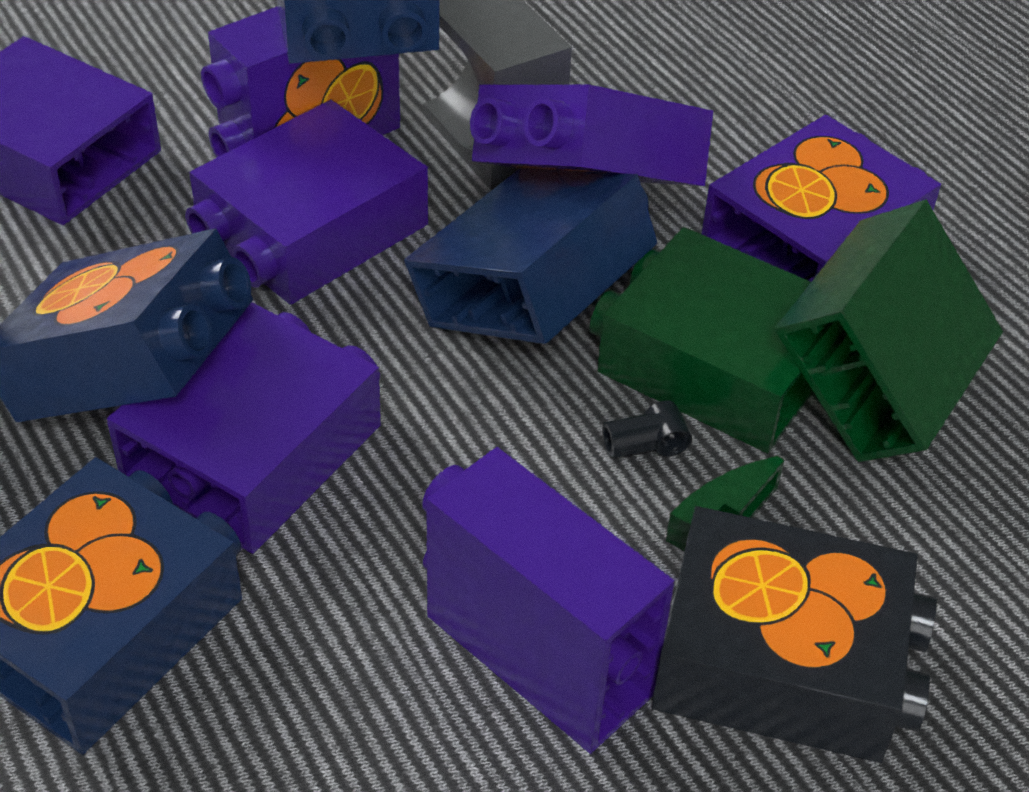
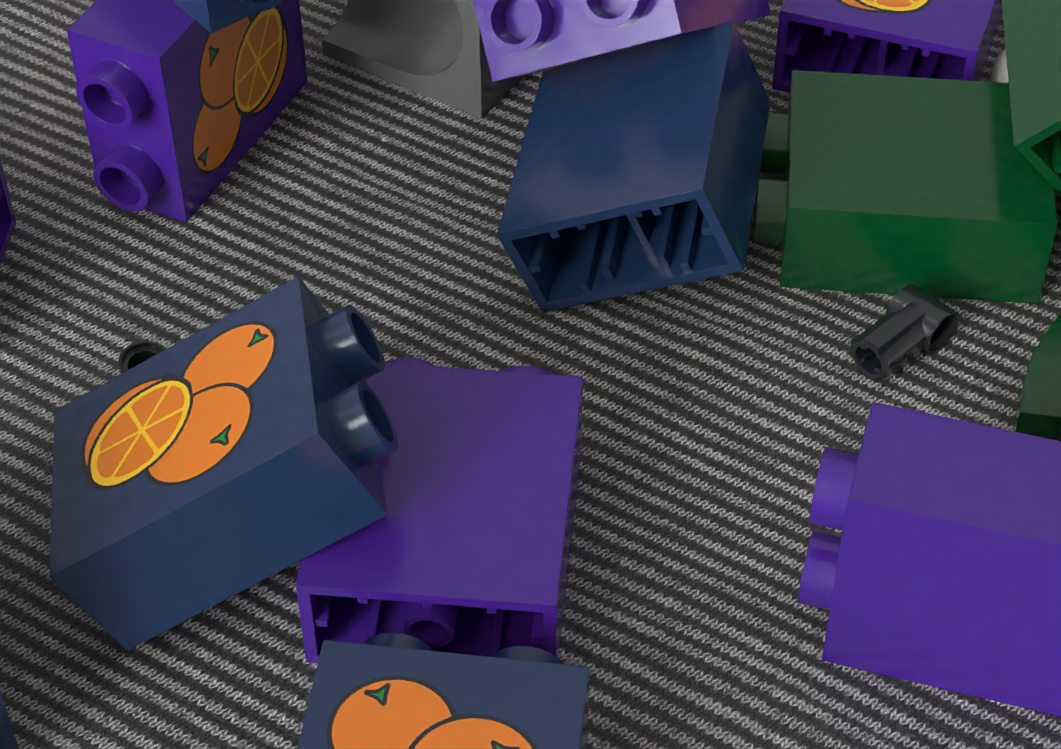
camera: 25 degrees left, 0 degrees up
(310, 200) = (286, 189): dark purple brick -> none

